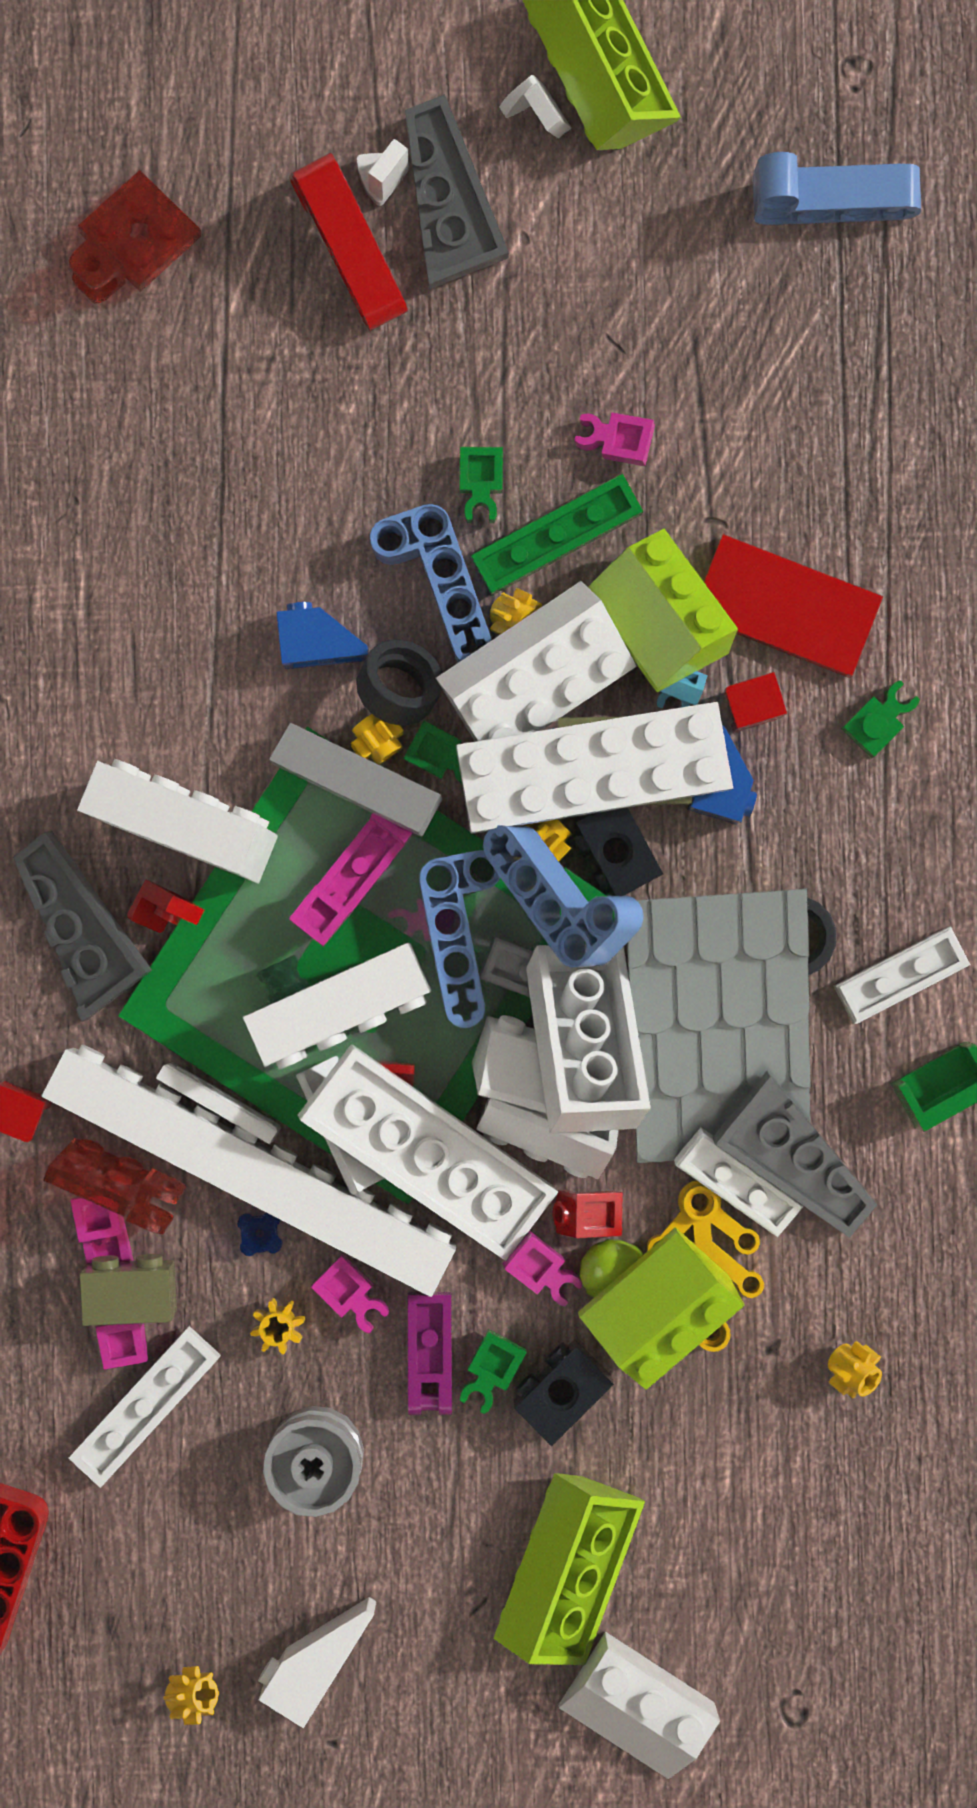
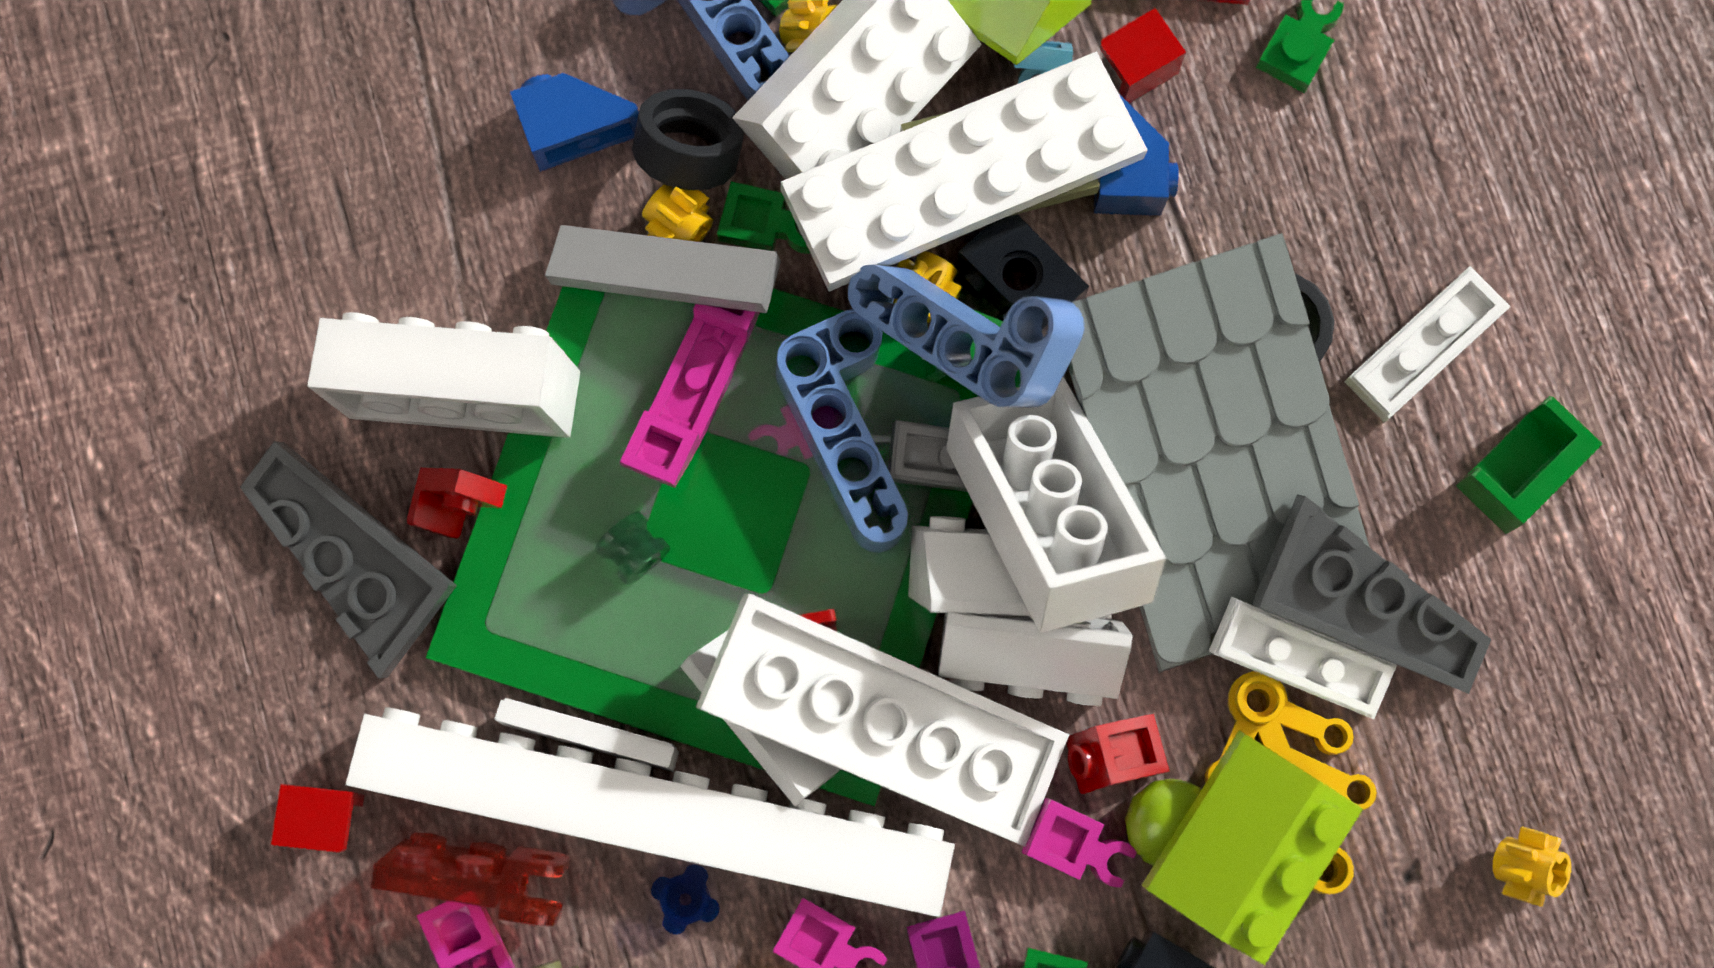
camera: 15 degrees left, 10 degrees down
(337, 1004) = (716, 553): white brick -> none

